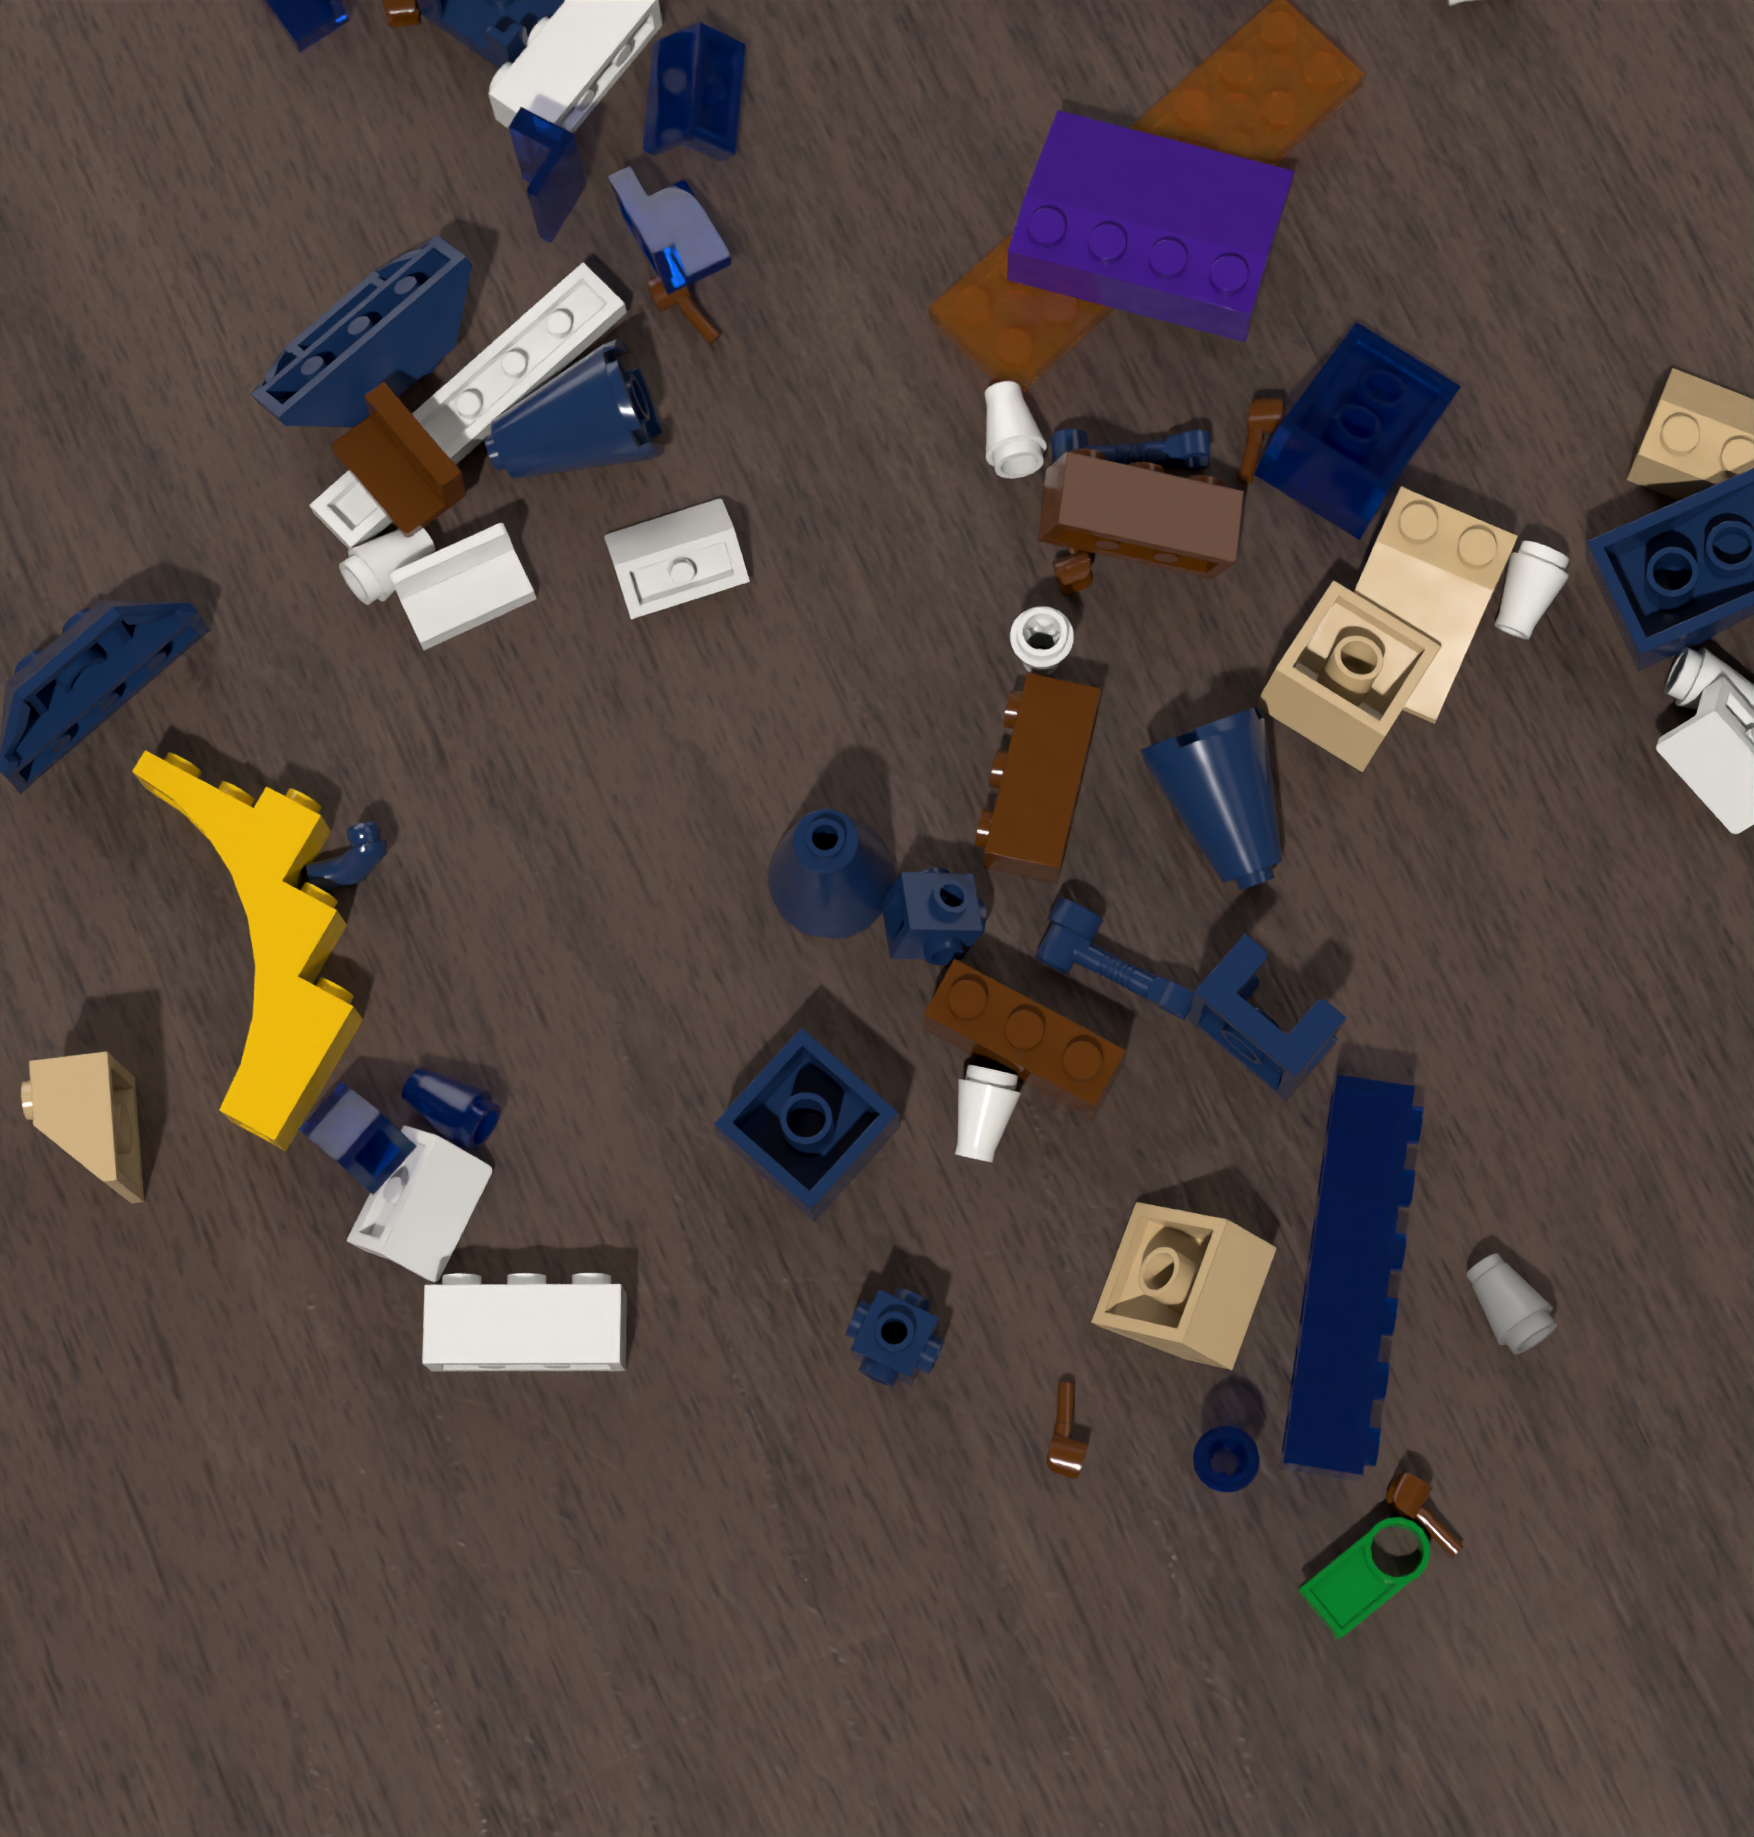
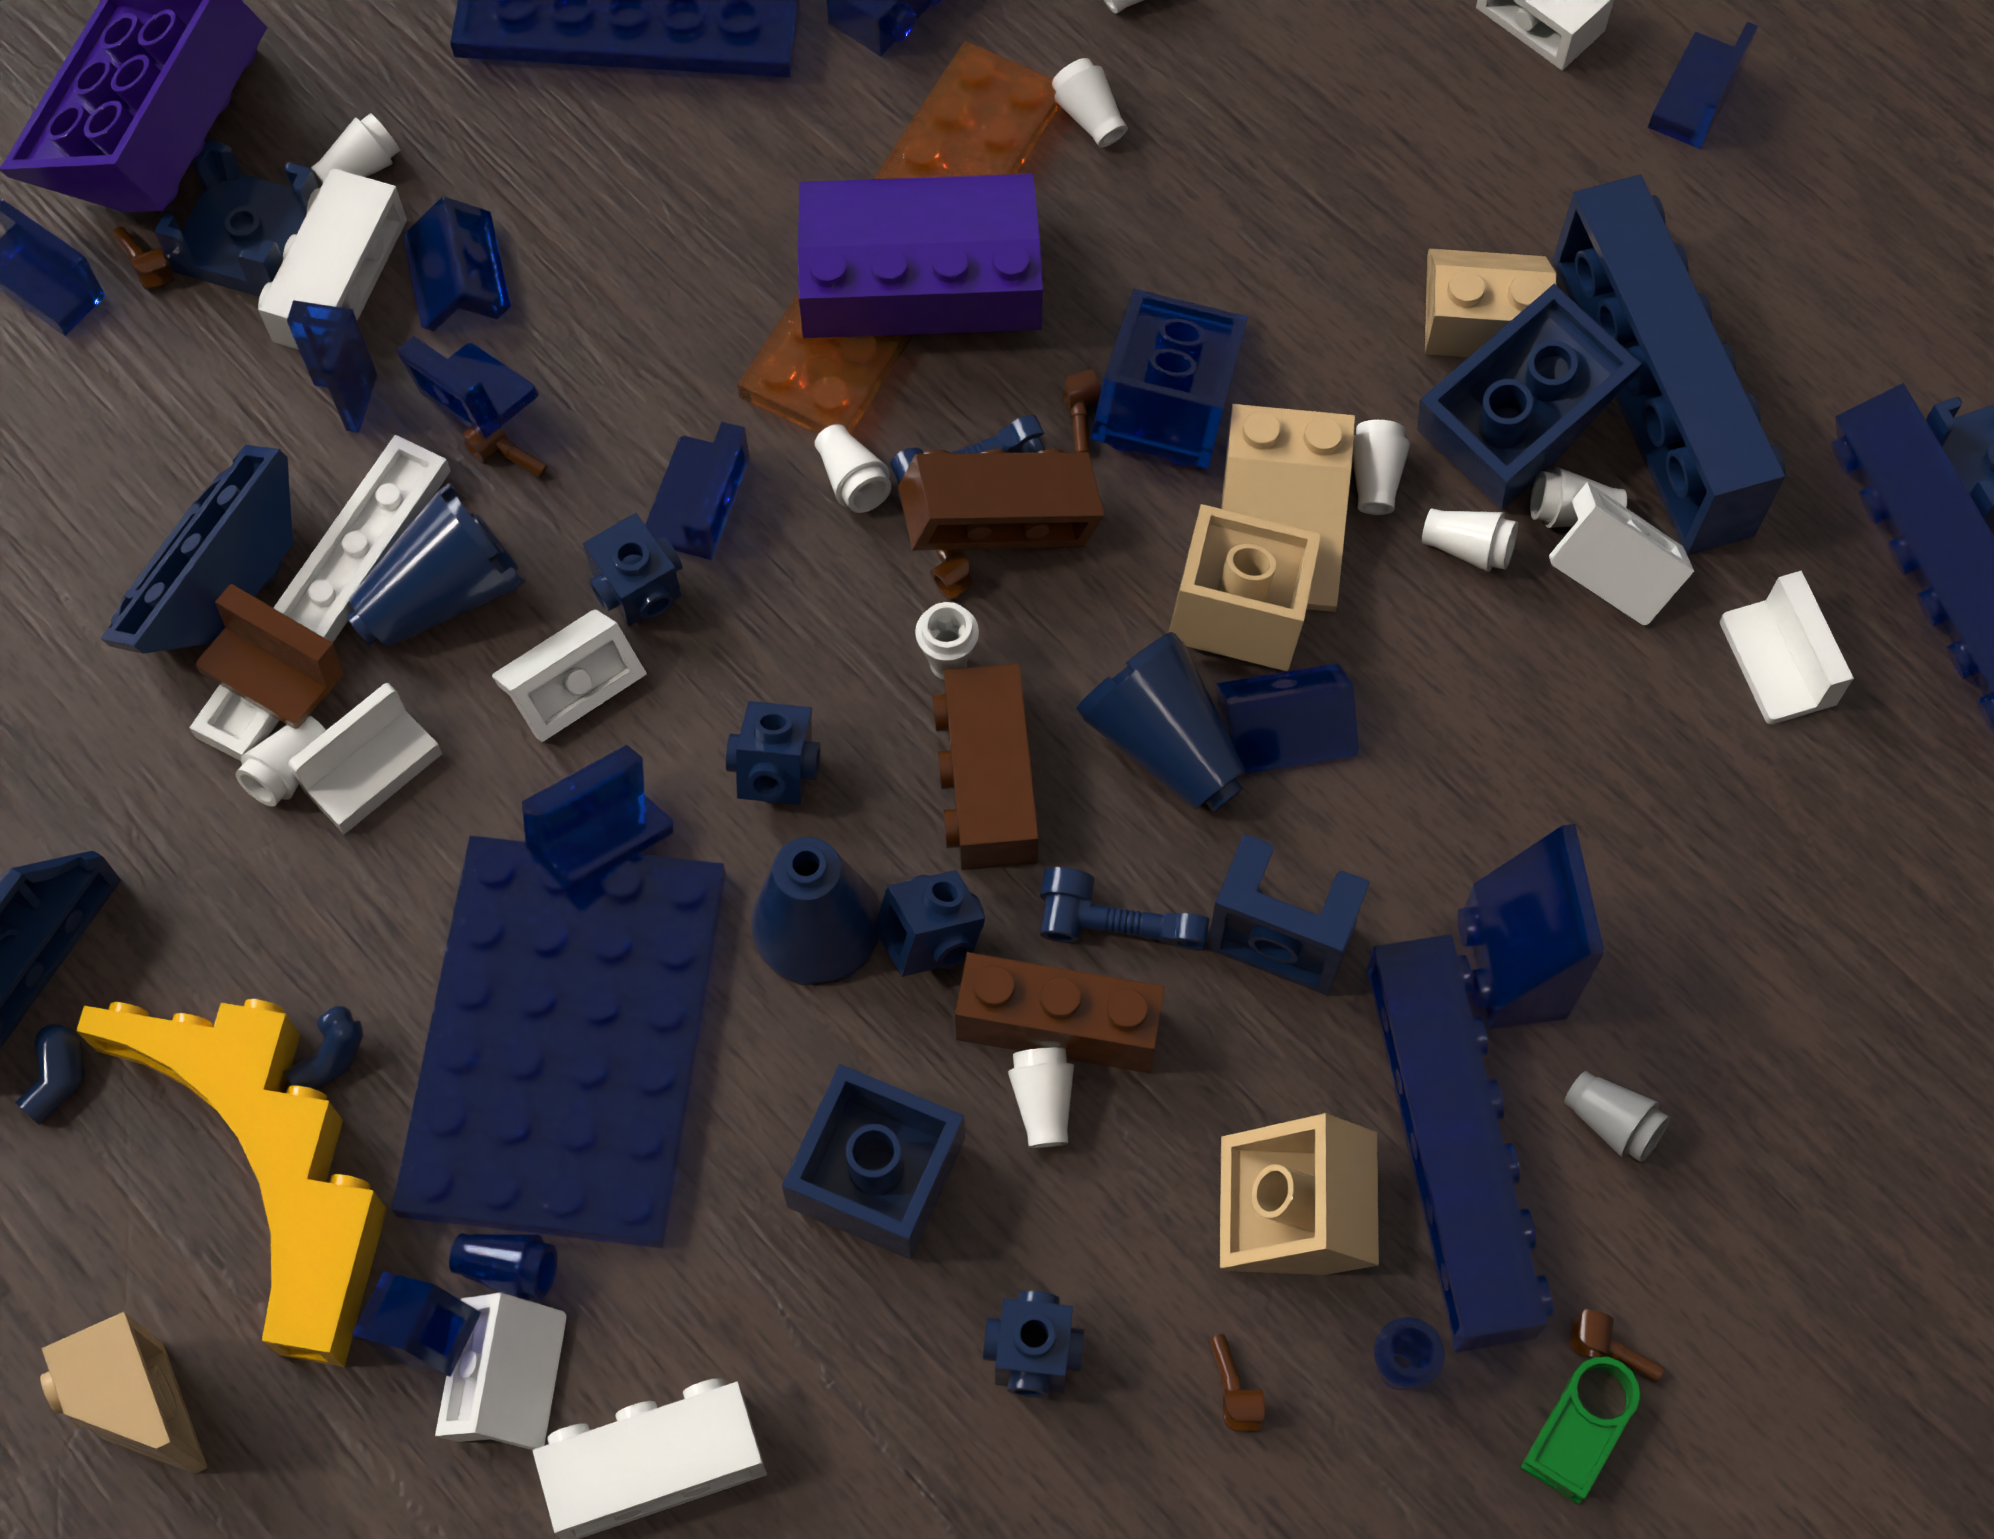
camera: 25 degrees left, 10 degrees down
(108, 799) = (59, 1069): none -> dark blue arm
(565, 913) = (561, 1047): none -> clear blue plate
(655, 716) = (594, 819): none -> clear blue panel
(767, 476) = (633, 570): none -> dark blue brick
(841, 716) = (773, 753): none -> dark blue brick
(856, 409) = (700, 491): none -> clear blue panel
(1346, 818) = (1290, 717): none -> clear blue panel
(1383, 101) = (1089, 101): none -> white cone
(1485, 1112) = (1533, 933): none -> clear blue slope
(1597, 693) = (1475, 537): none -> white cone

